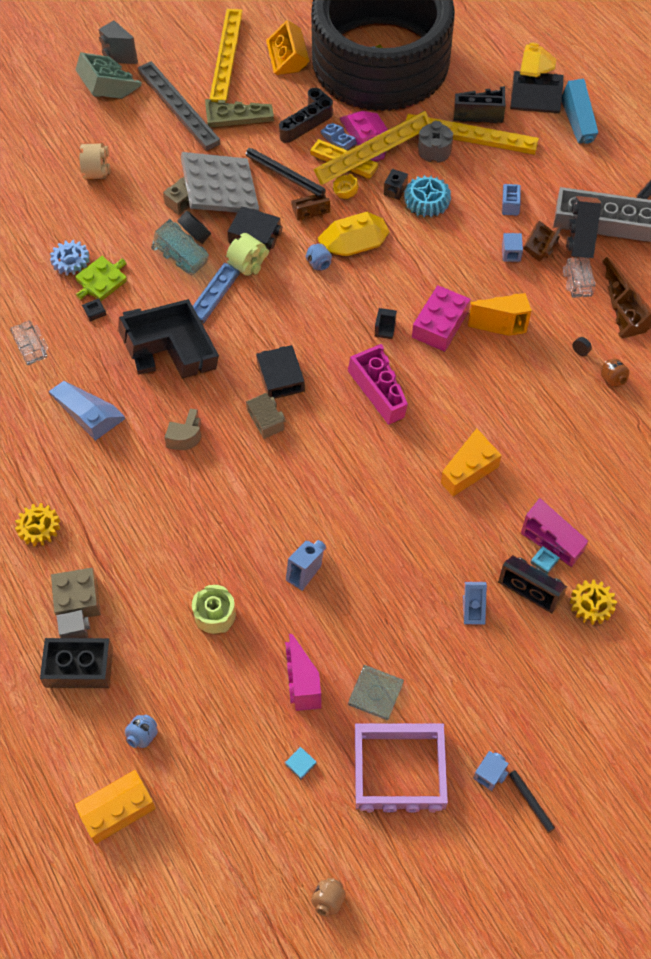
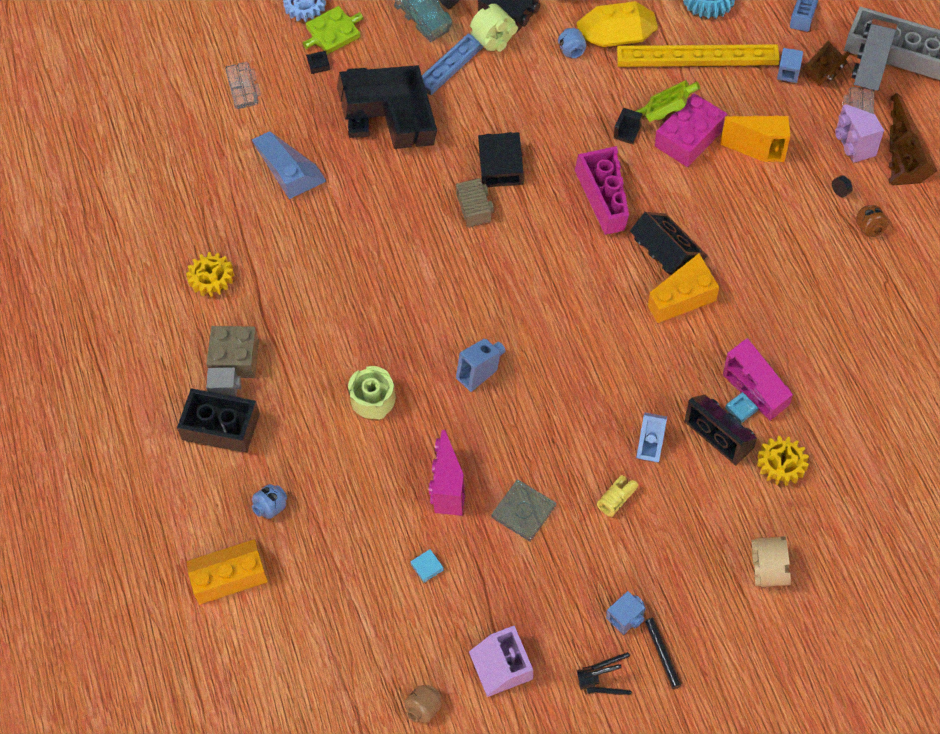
camera: 15 degrees right, 0 degrees up
(184, 435) = (383, 209): dark tan brick -> none
(391, 841) = (501, 661): none -> lavender slope
(400, 731) = (538, 554): lavender window -> none
(417, 295) = (668, 101): none -> lime plate
(430, 251) = (697, 55): none -> yellow plate
(443, 422) = (665, 241): none -> black slope
(455, 663) = (616, 496): none -> light yellow hinge
(473, 838) = (589, 677): none -> black plant
(585, 297) = (859, 133): none -> lavender slope
(608, 697) = (771, 561): none -> tan brick

